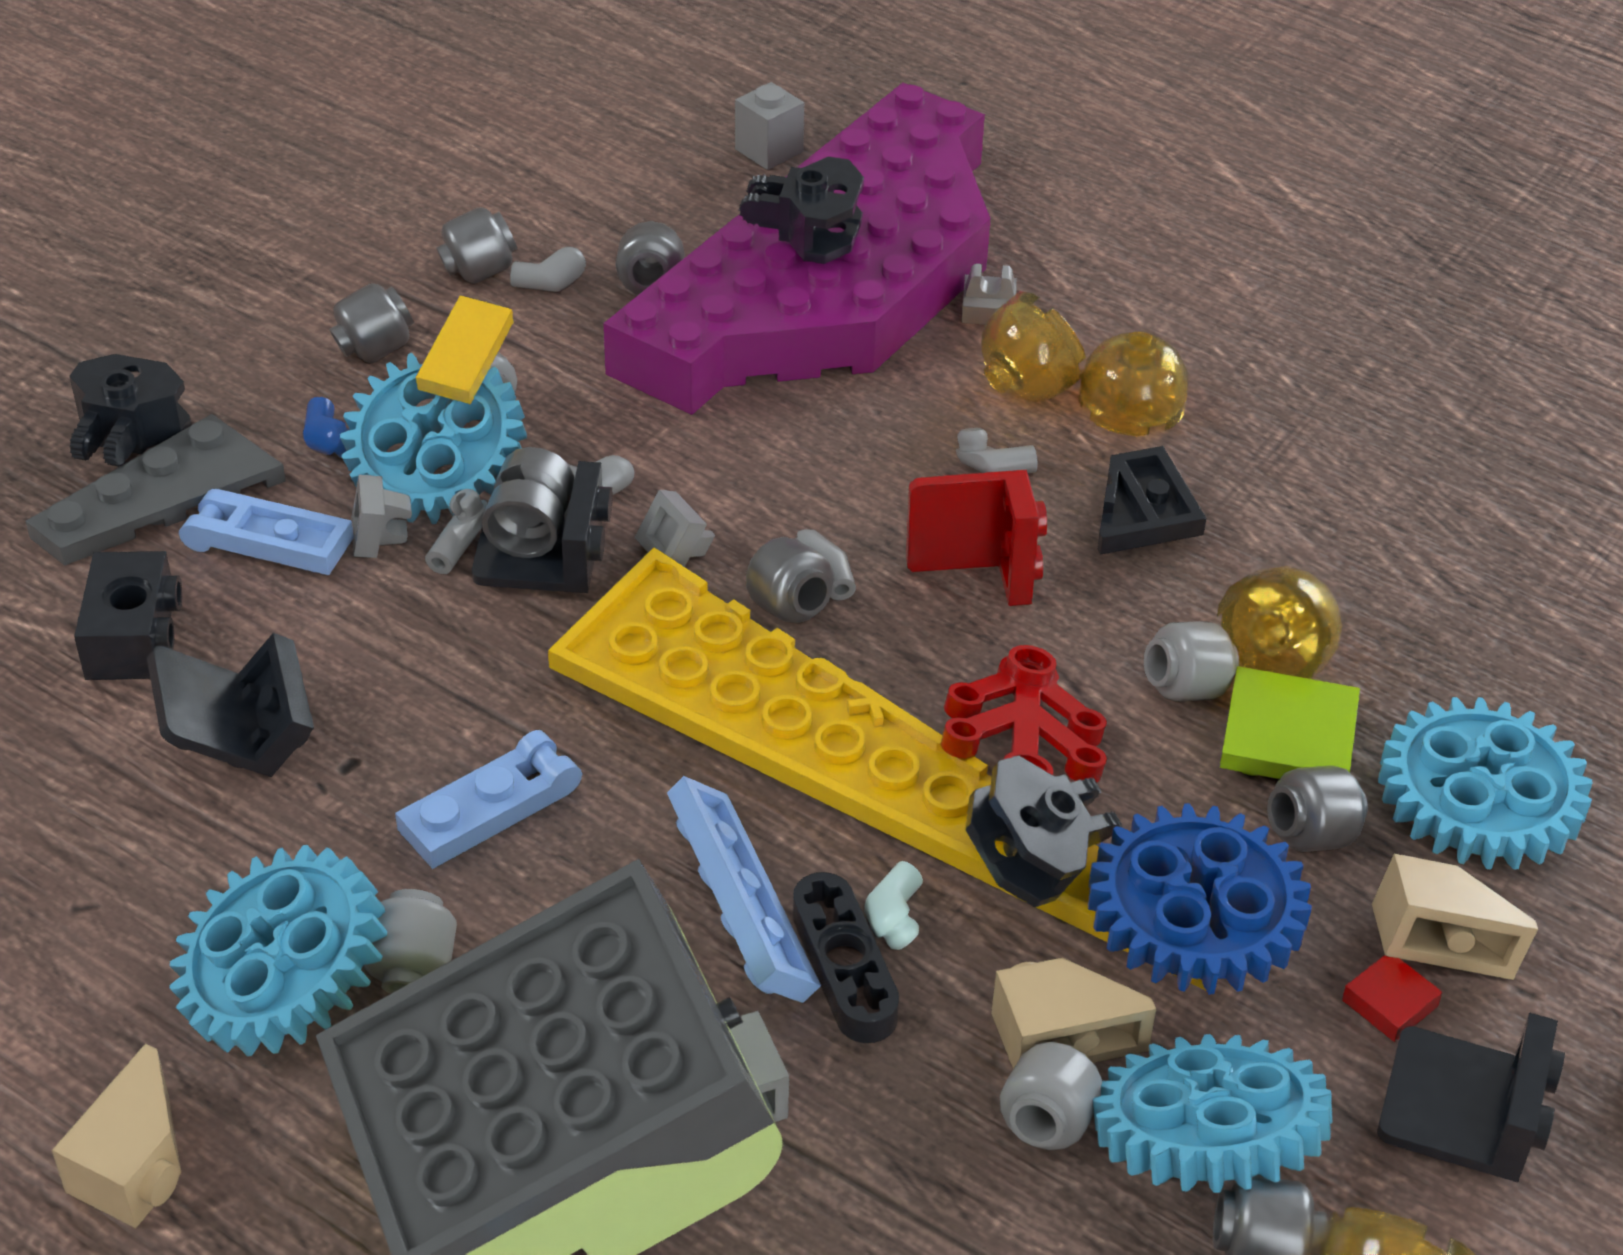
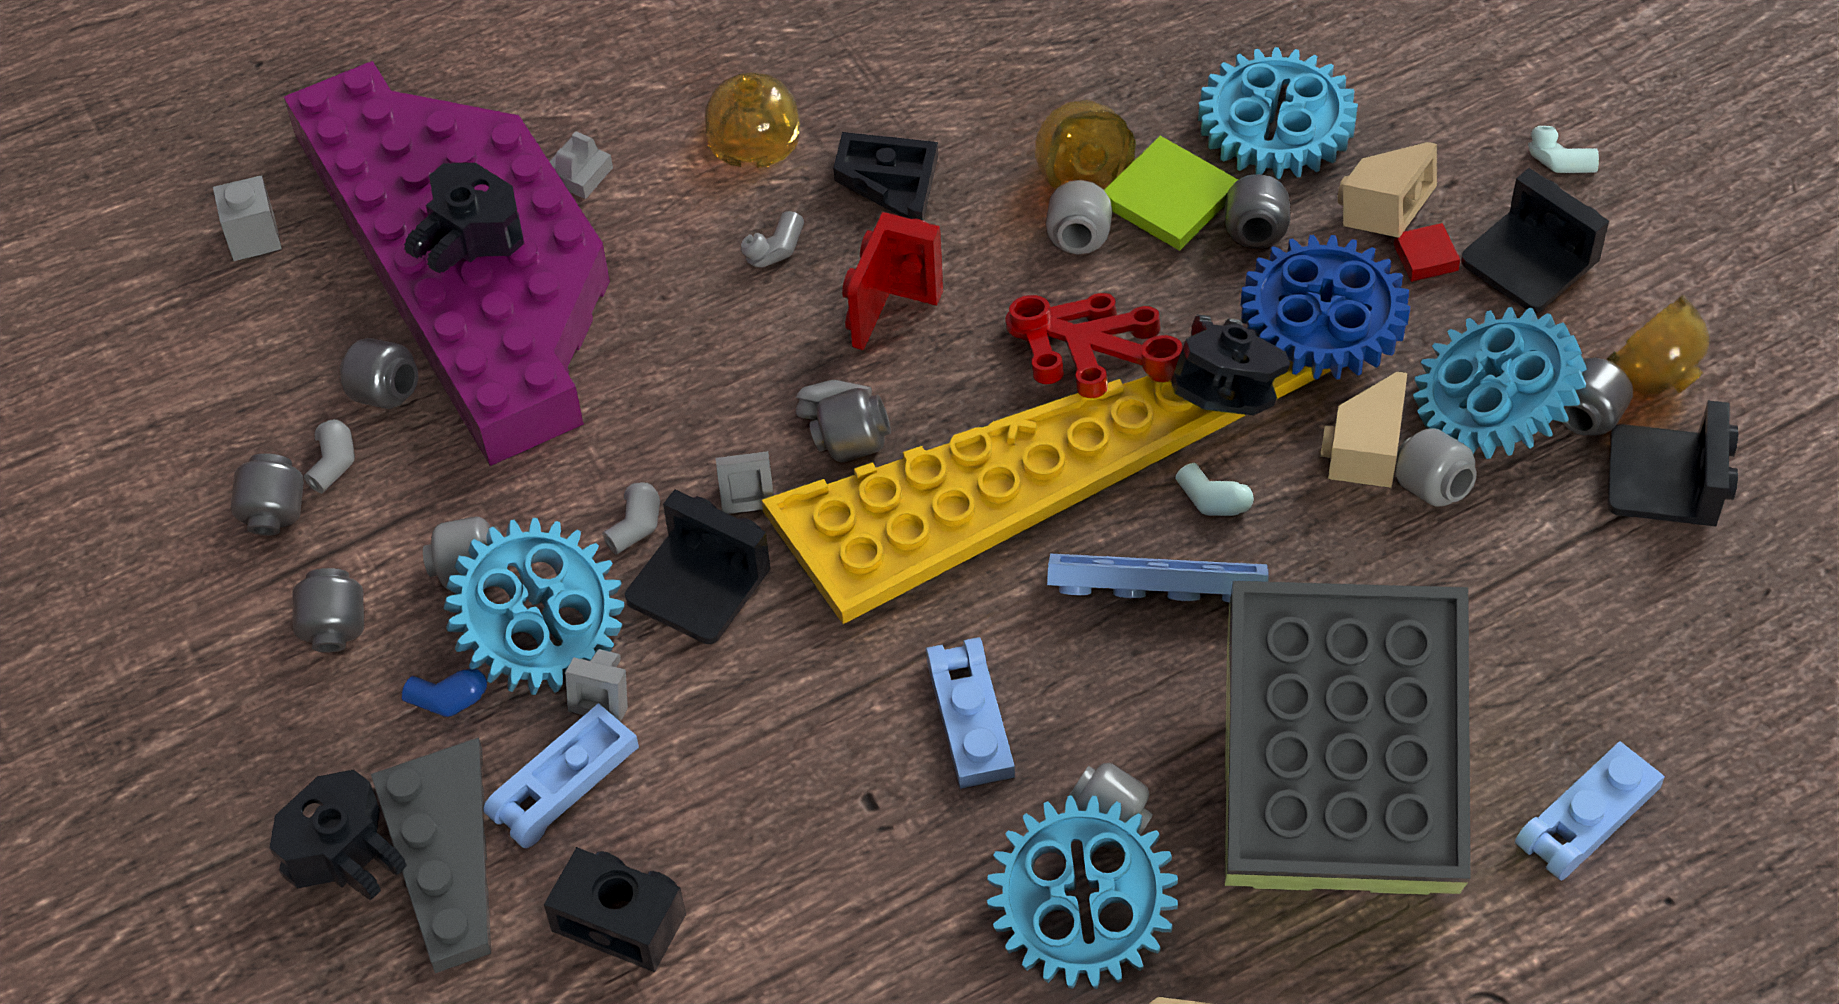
camera: 60 degrees left, 10 degrees up
(234, 717) = (791, 844): black bracket -> none
(458, 533) = (647, 632): light grey arm -> none
(464, 349) = (486, 530): yellow tile -> none
(528, 502) = (678, 562): flat silver wheel -> none
(842, 981) = (1284, 528): black beam -> none
(1030, 350) = (685, 163): clear yellow cylinder -> none

